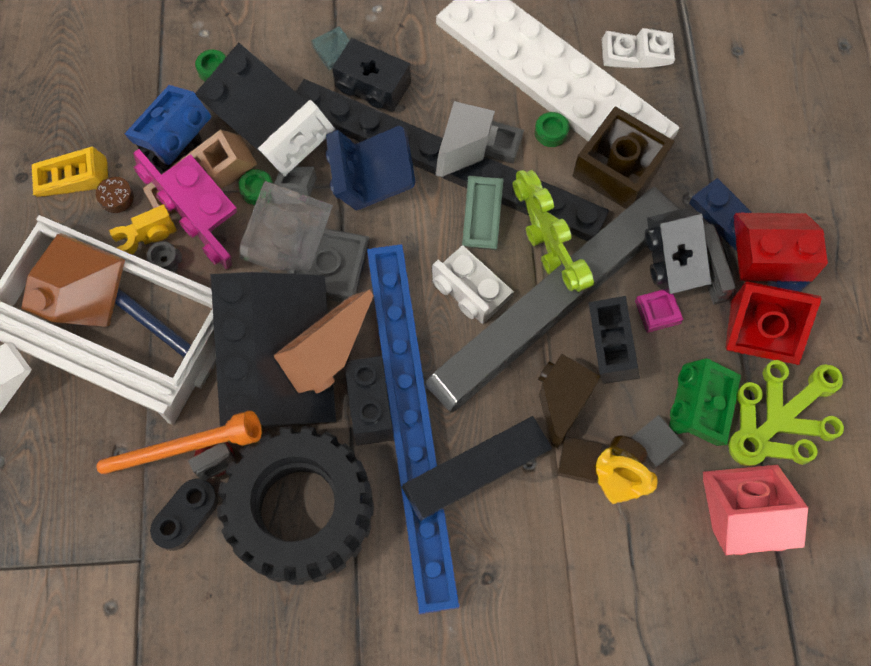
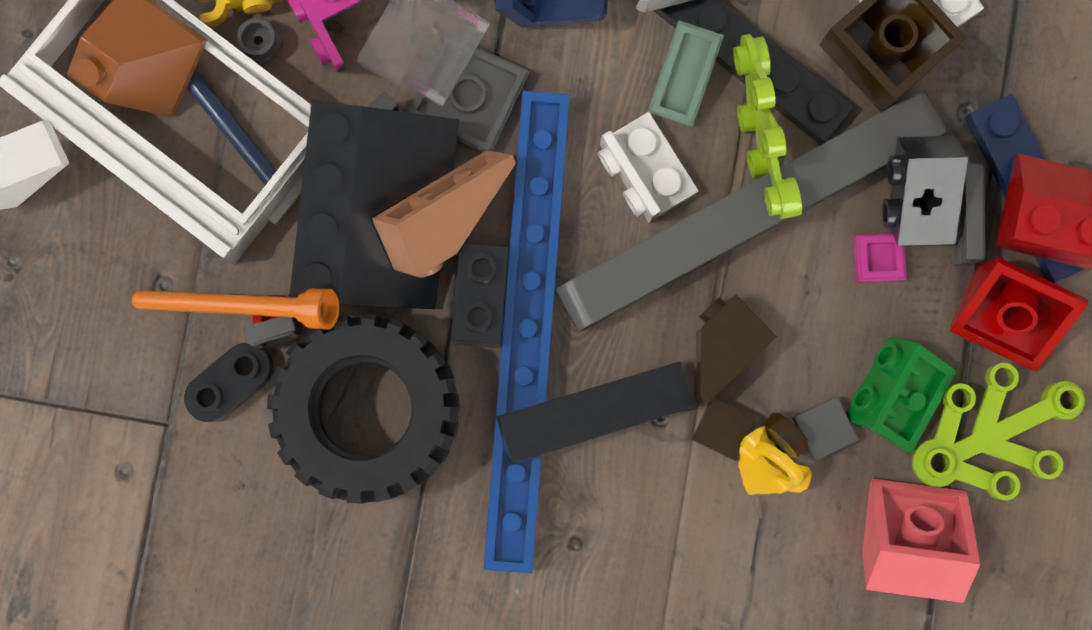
camera: 10 degrees right, 15 degrees up
(614, 340) = (807, 290): black brick -> none

